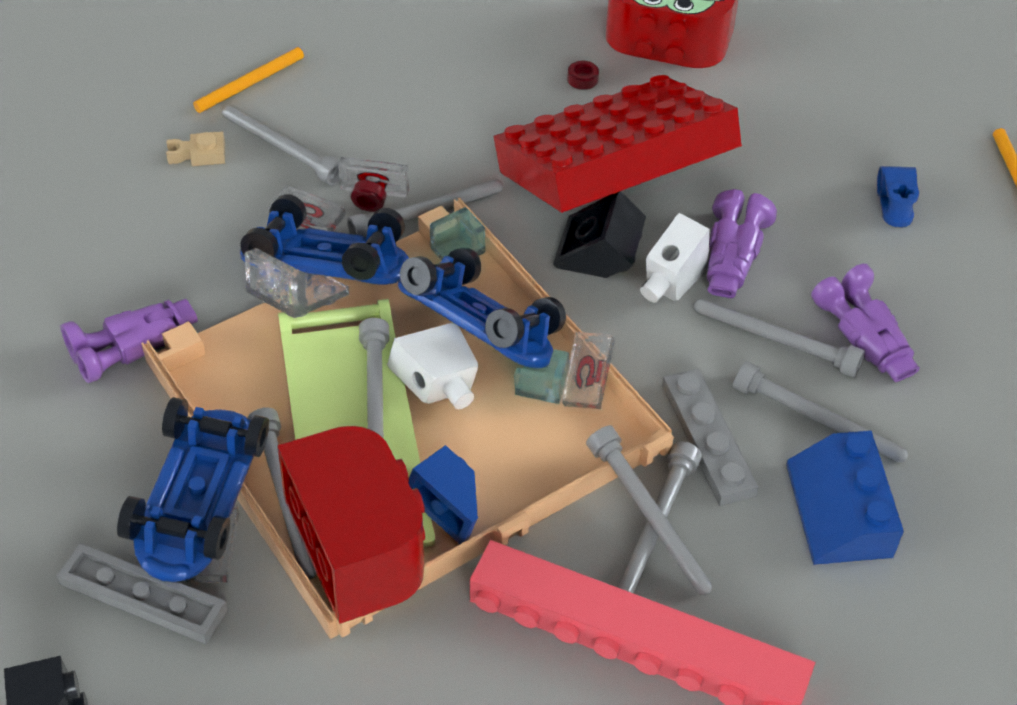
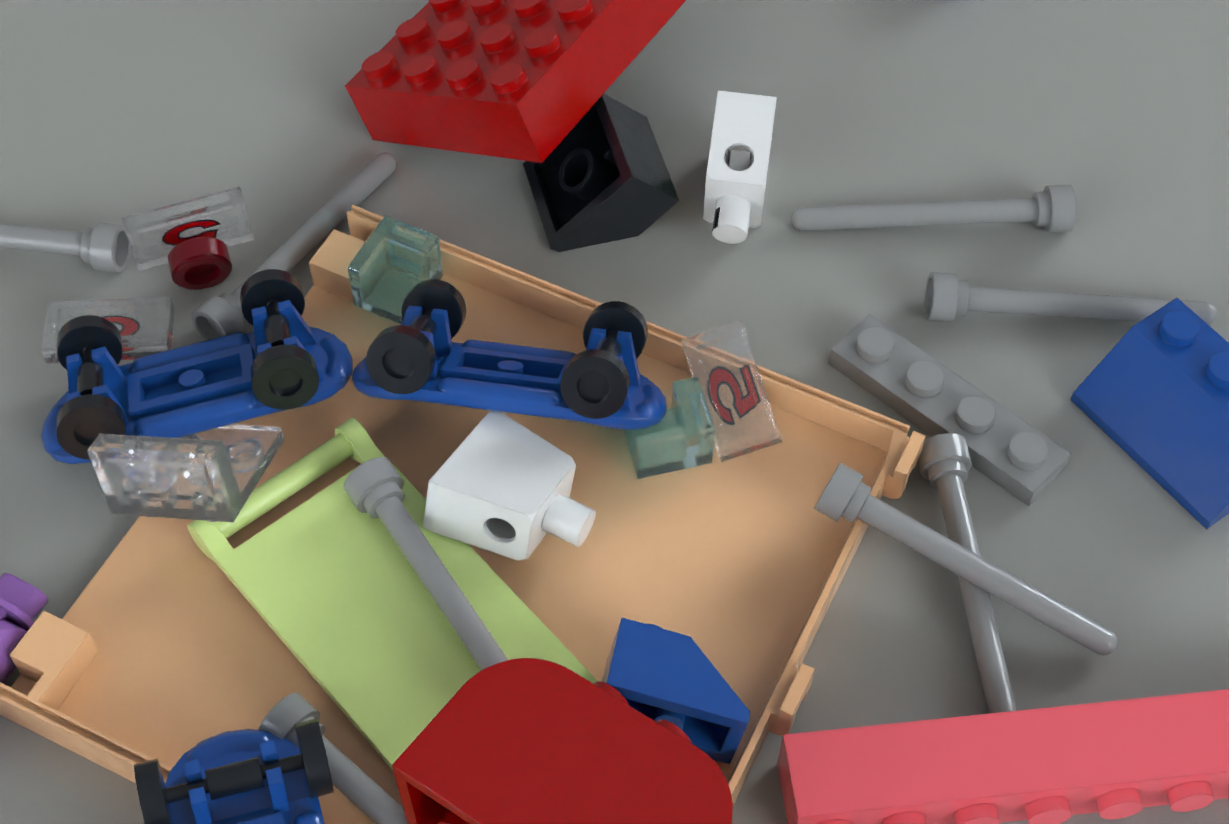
camera: 30 degrees left, 5 degrees up
(736, 246) = (803, 120): medium lavender piece -> none
(869, 323) = (1046, 144): medium lavender piece -> none

